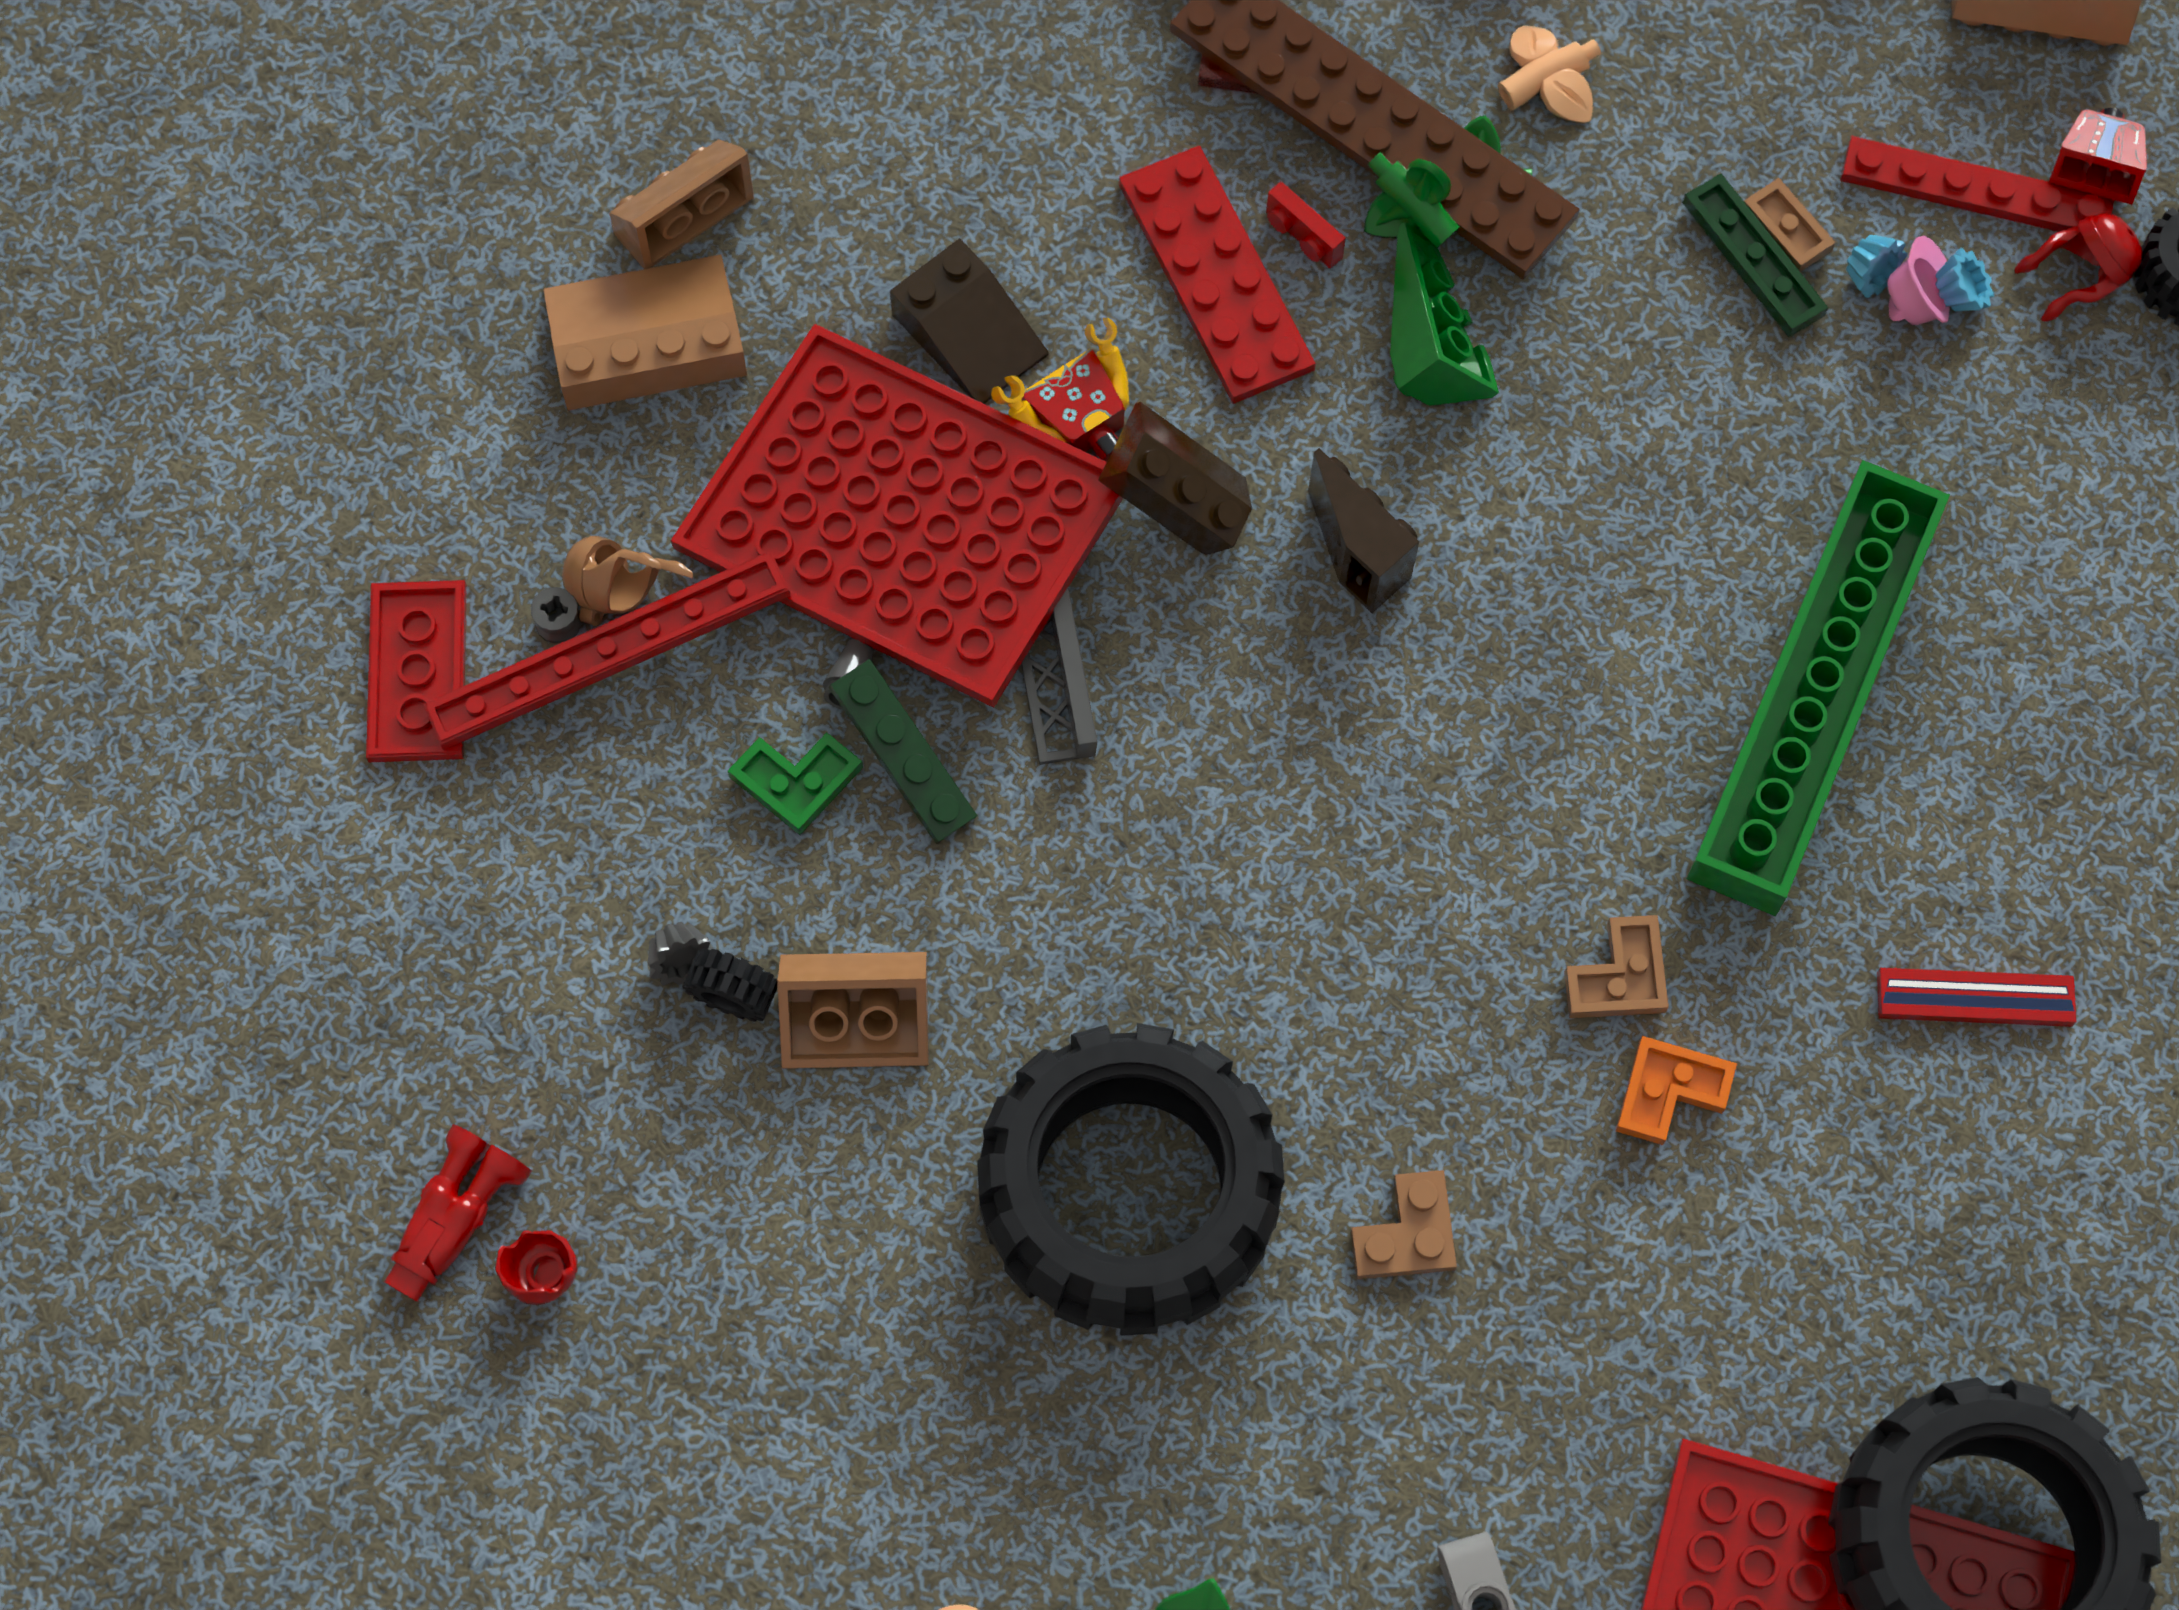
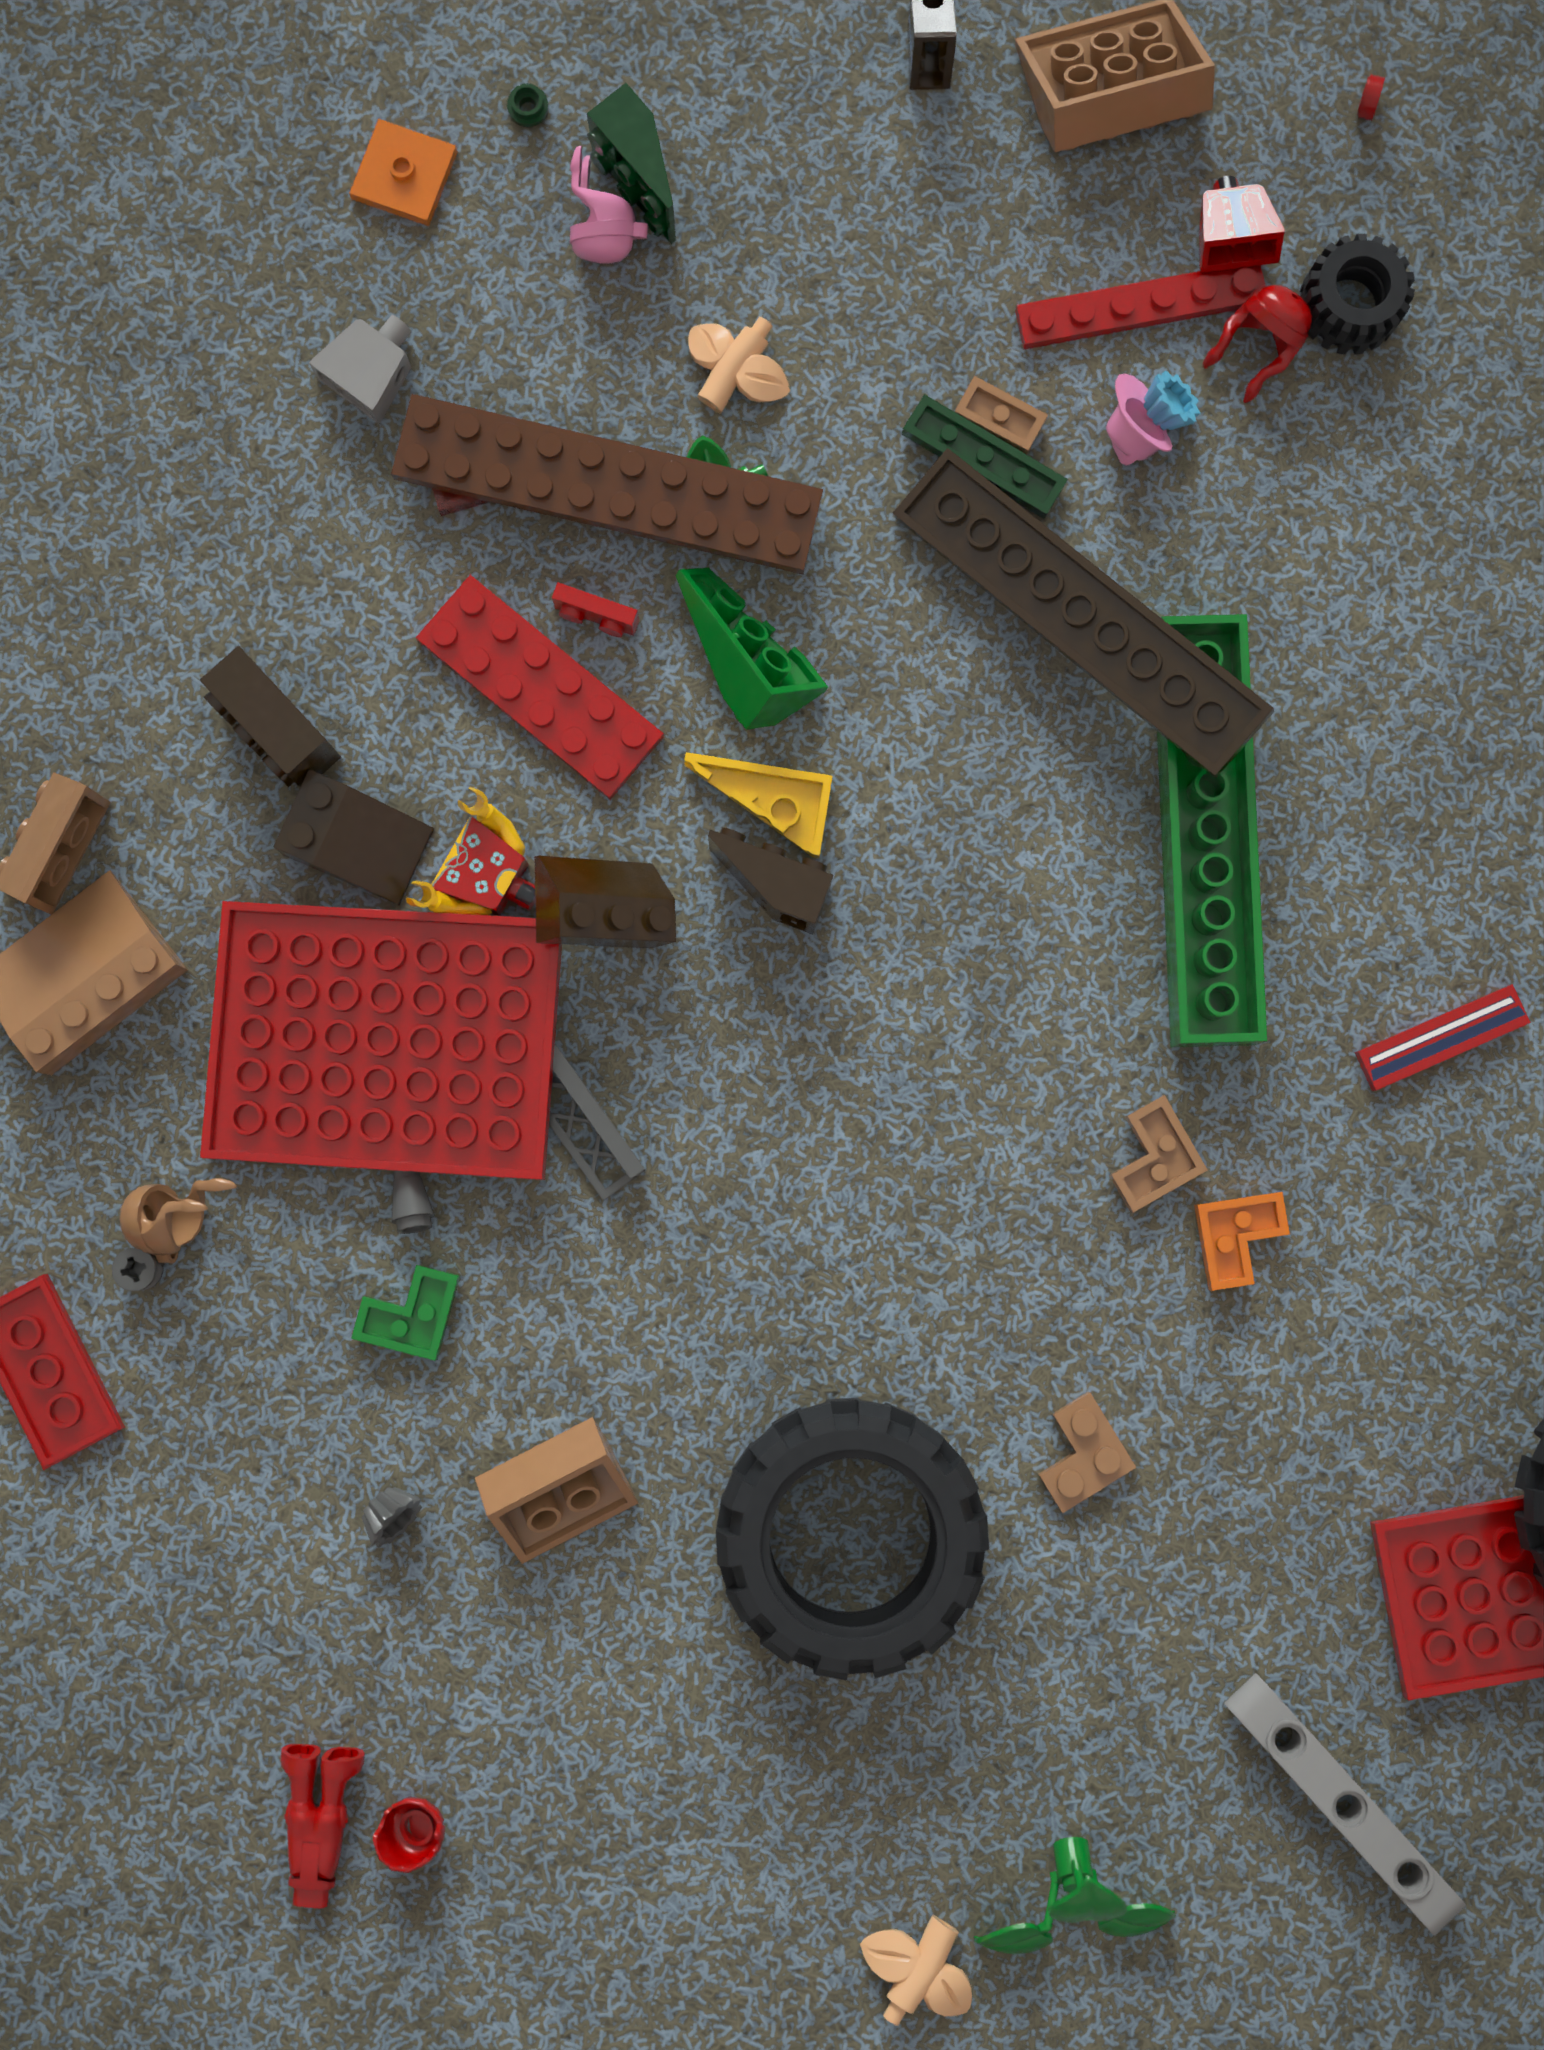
camera: 30 degrees left, 15 degrees up
(606, 650) = (196, 1284): red tile -> none
(730, 984) = (447, 1527): black tyre -> none
(902, 751) = (487, 1252): dark green plate -> none
(943, 178) = (267, 719): none -> dark brown brick
(1402, 471) = (780, 797): none -> yellow wing
(1412, 198) = (675, 547): green plant -> none
(1785, 426) = (1083, 613): none -> dark brown plate
(1874, 262) = (1088, 418): medium azure piece -> none

